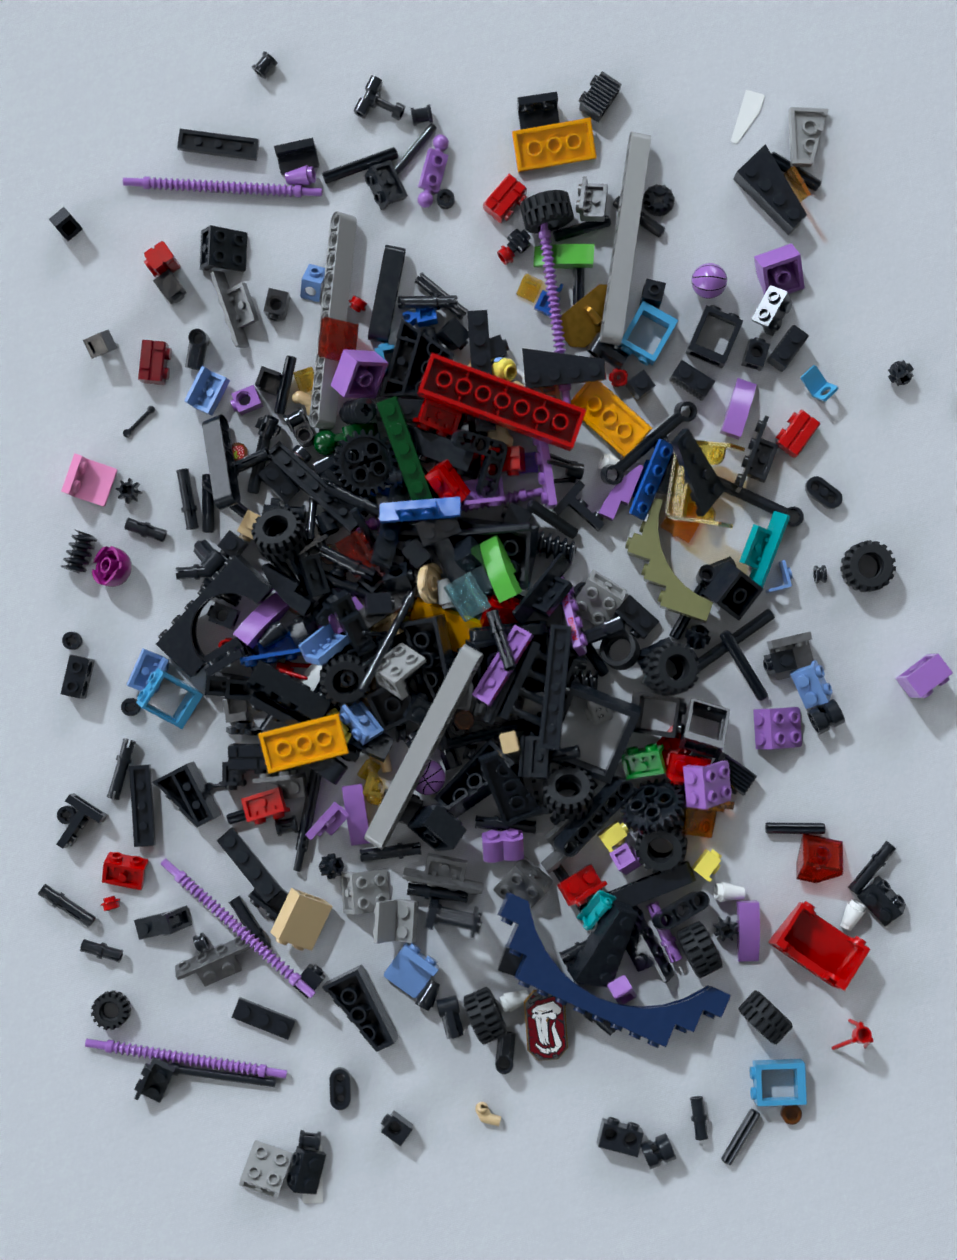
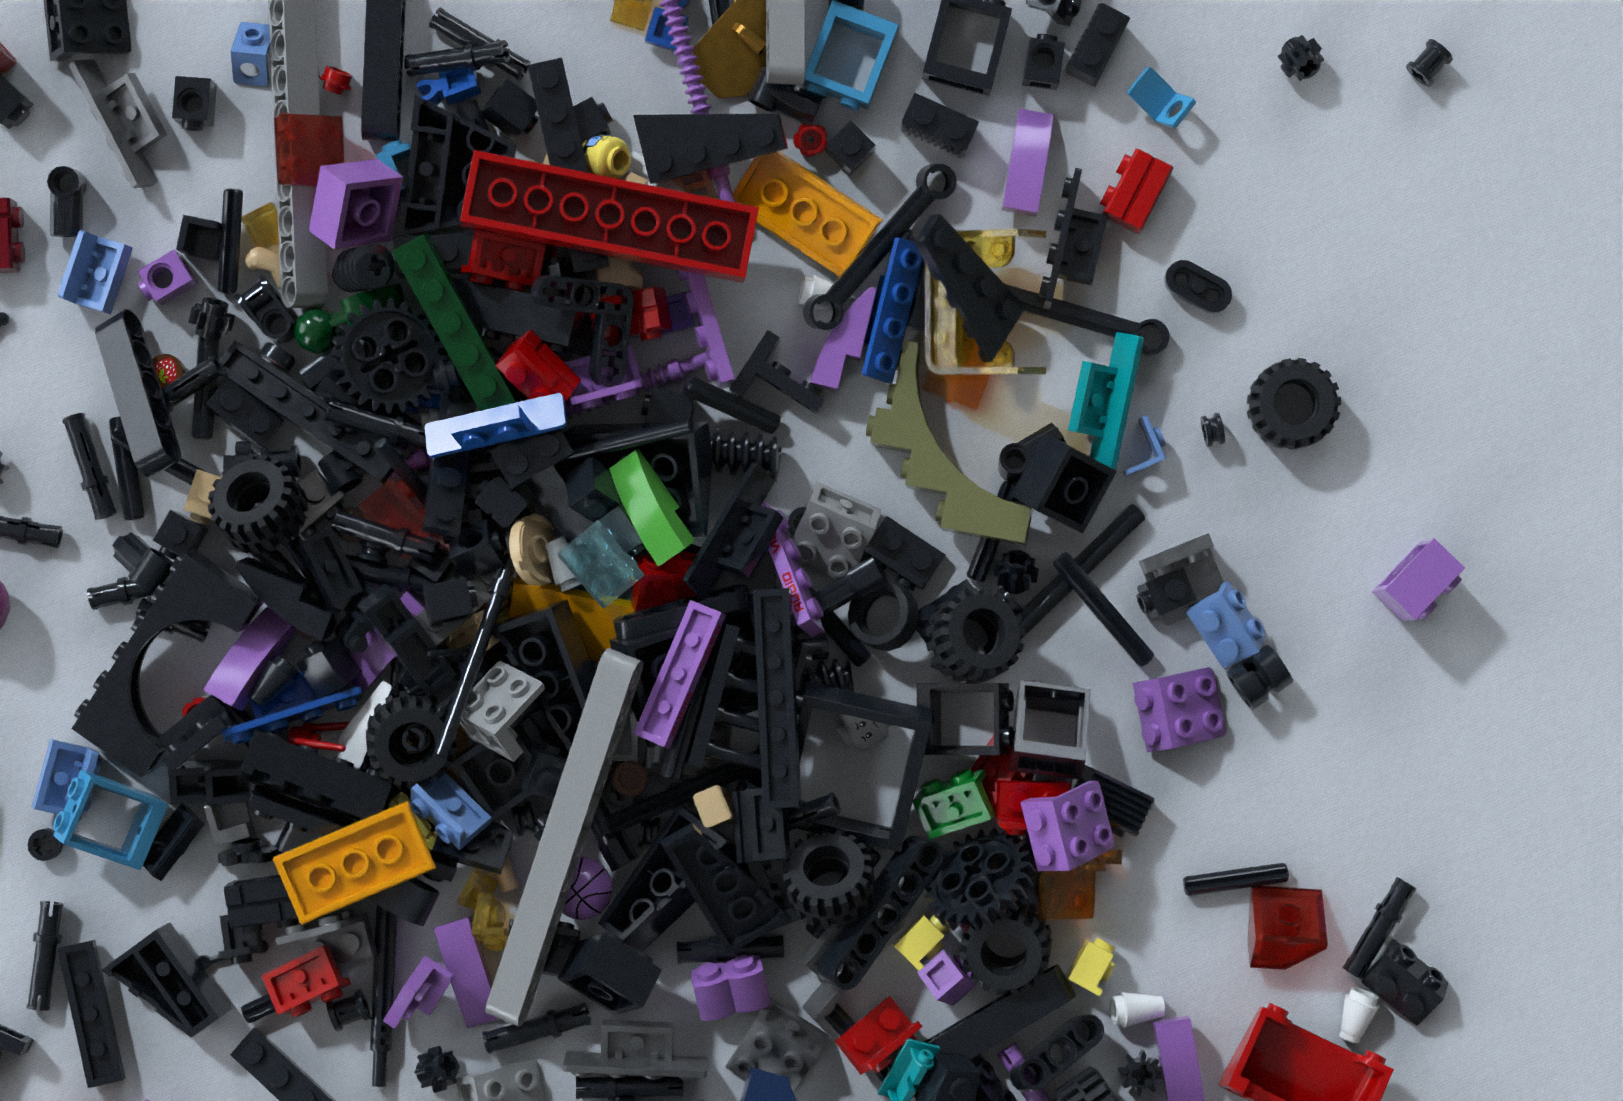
camera: 10 degrees left, 0 degrees up
(202, 715) = (172, 841): none -> black plate
(232, 615) = (198, 660): black brick -> none
(311, 520) = (311, 471): black bar -> none
(322, 645) = (362, 687): medium blue bracket -> none
(494, 618) = (669, 630): black pin -> none
(573, 469) = (755, 312): black plant -> none

